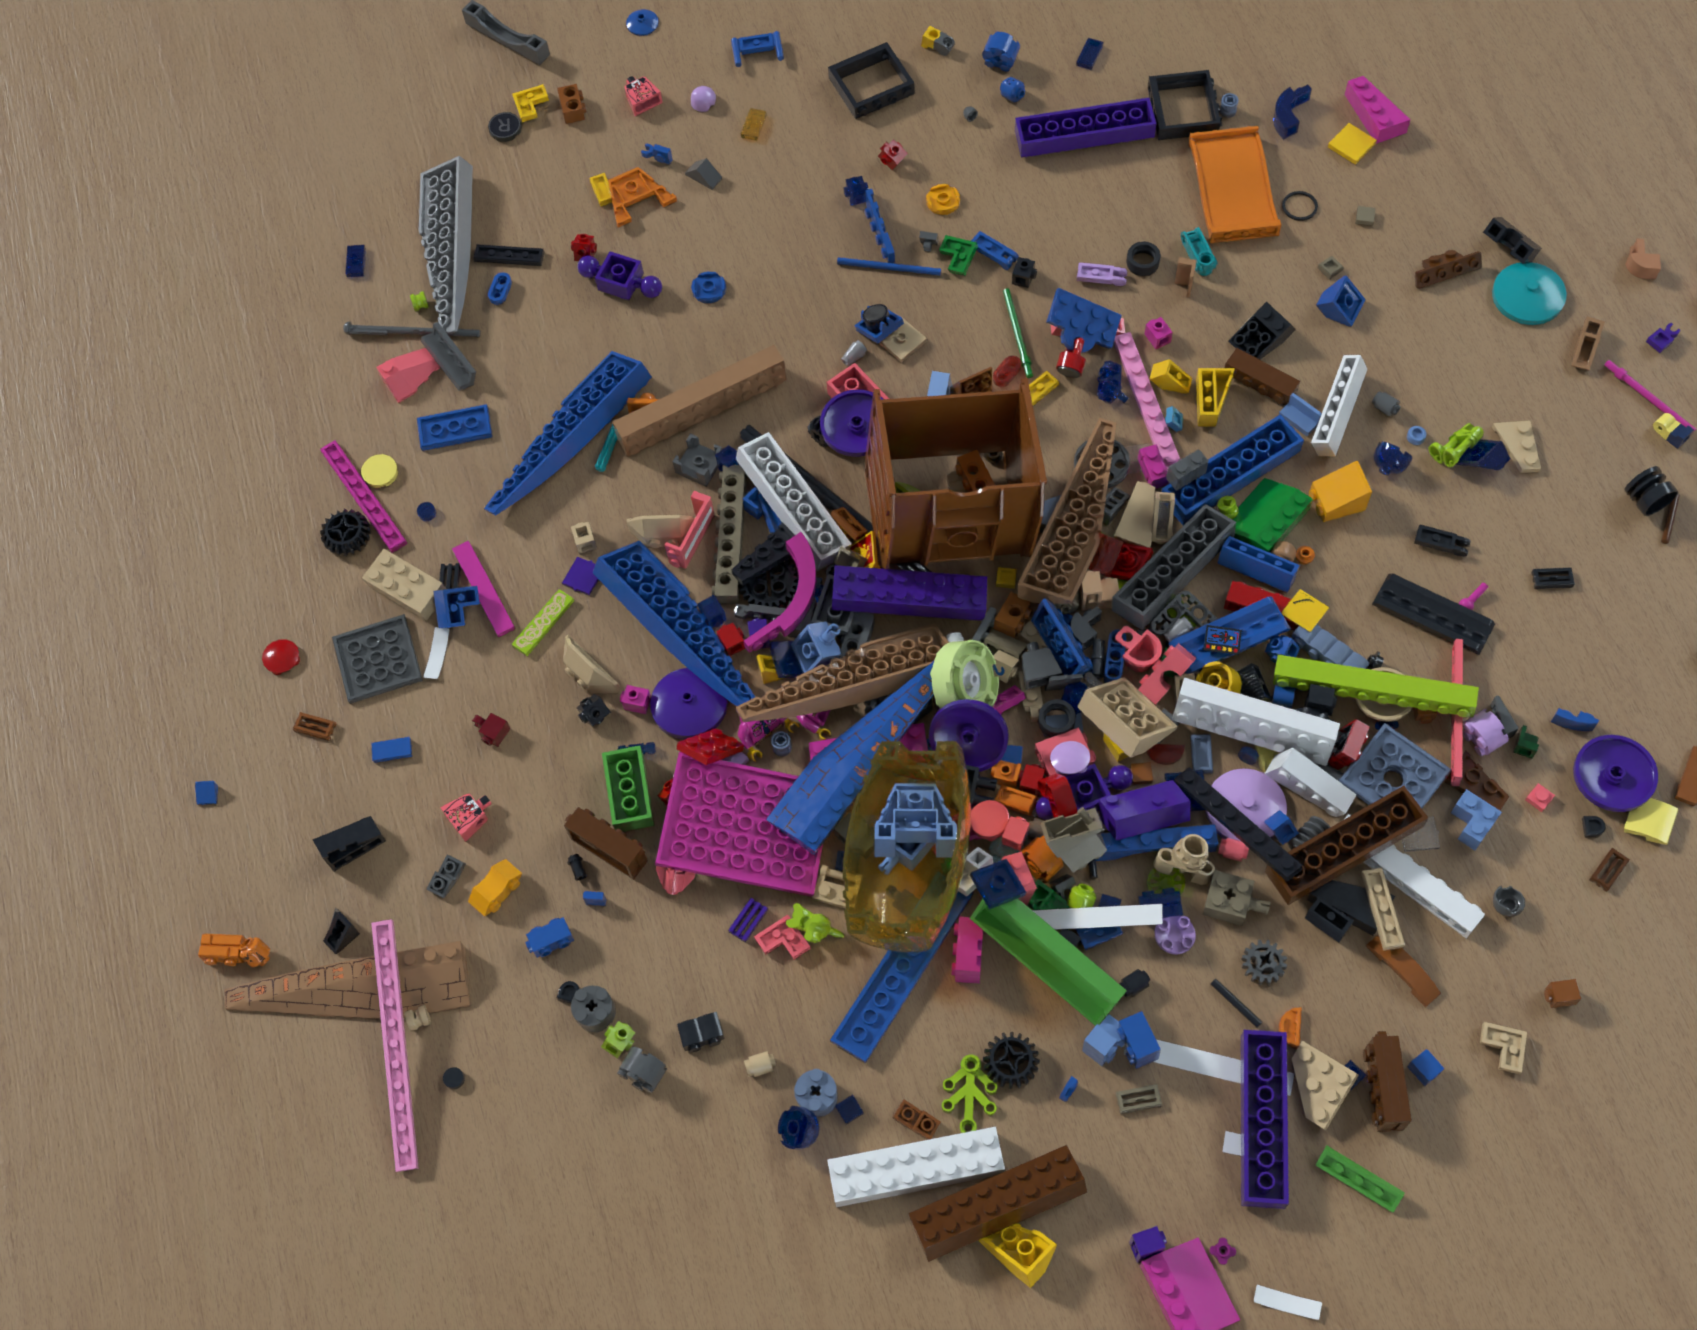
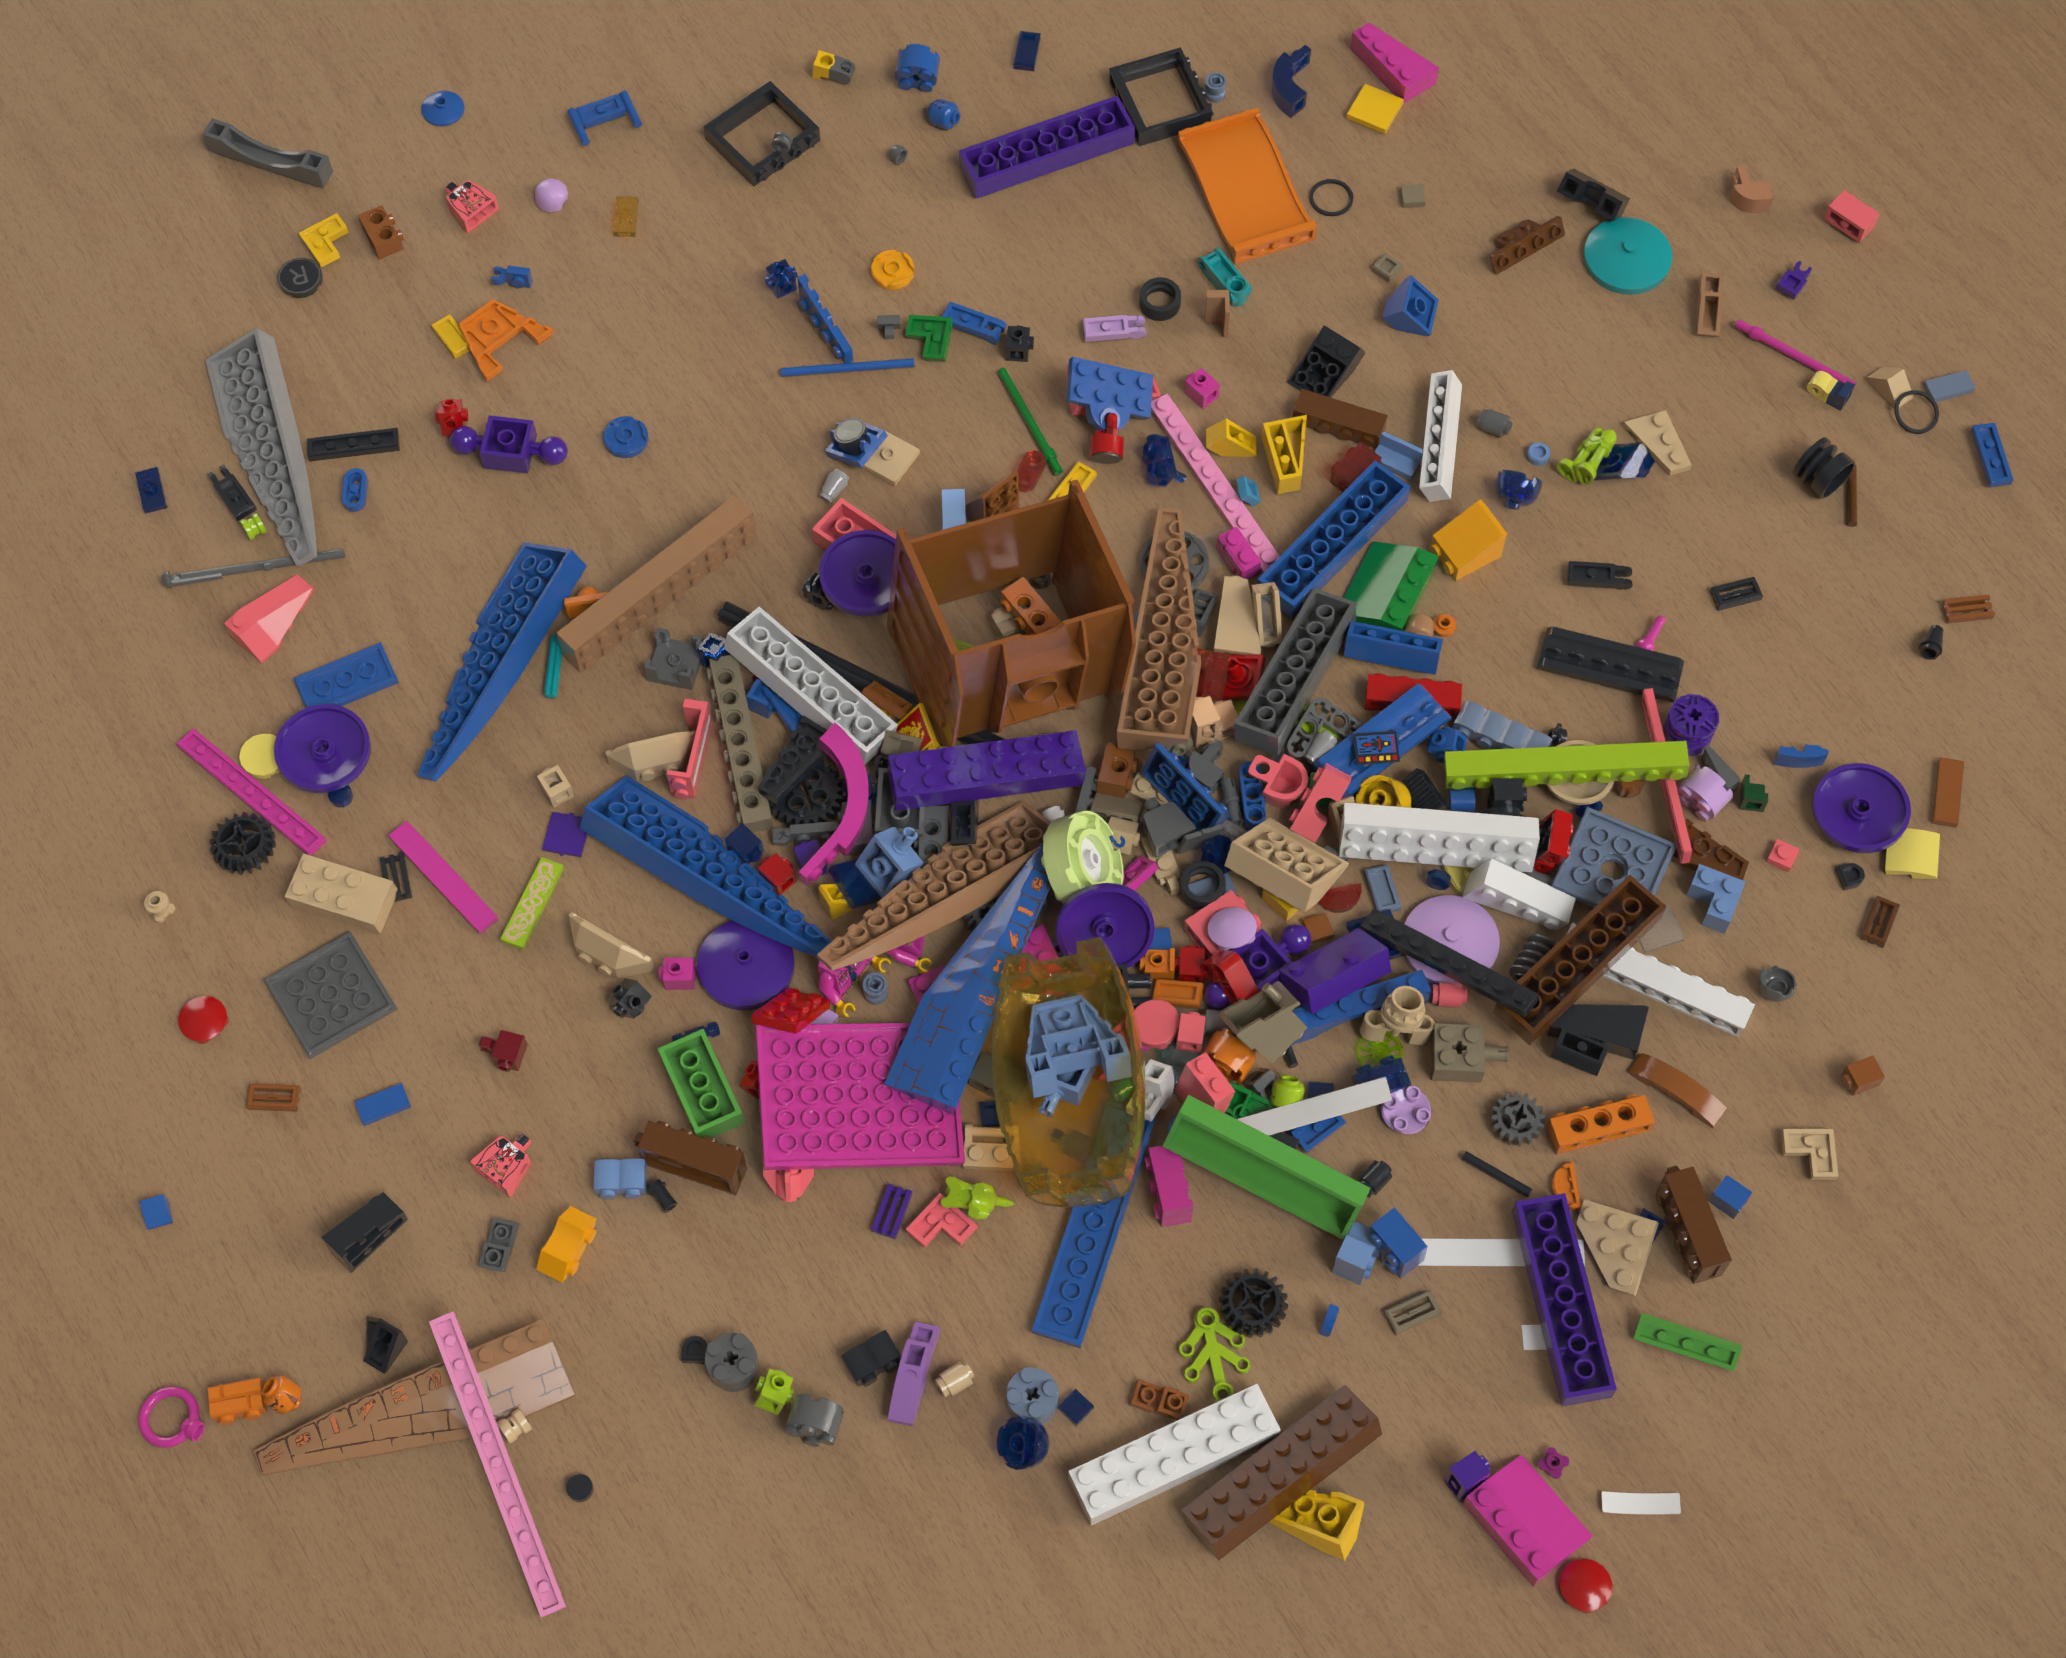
camera: 20 degrees left, 0 degrees up
(184, 961) = (190, 1429): none -> dark pink piece
(273, 565) = (158, 906): none -> tan brick
(411, 275) = (232, 494): none -> black hinge
(421, 474) = (322, 748): none -> dark purple dish
(437, 653) = (406, 971): white sticker -> none
(449, 357) = (314, 593): dark grey fence -> none
(450, 605) = (411, 903): blue brick -> none
(549, 846) = (620, 1177): none -> medium blue brick
(549, 937) = (654, 1288): blue brick -> none
(594, 898) = (695, 1228): blue tile -> none
(704, 173) = (579, 291): dark grey slope -> none
(727, 1051) = (912, 1373): none -> medium lavender slope
(882, 88) = (782, 142): none -> dark grey bush
(883, 629) = (964, 822): none -> black slope
(892, 154) = (814, 224): red brick -> none
(998, 883) = (1189, 1096): clear blue tile -> none
(1006, 577) = (1095, 727): yellow tile -> none
(1187, 469) = (1283, 550): dark grey brick -> none
(1228, 507) = (1333, 584): lime wheel -> none
(1262, 414) = (1352, 466): none -> clear red brick
(1281, 827) = (1499, 954): blue panel -> none
(1305, 610) = (1462, 692): yellow sticker -> none
(1343, 988) = (1615, 1128): none -> orange brick
(1382, 909) = (1638, 1025): tan tile -> none
(1490, 673) = (1692, 720): none -> dark purple wheel

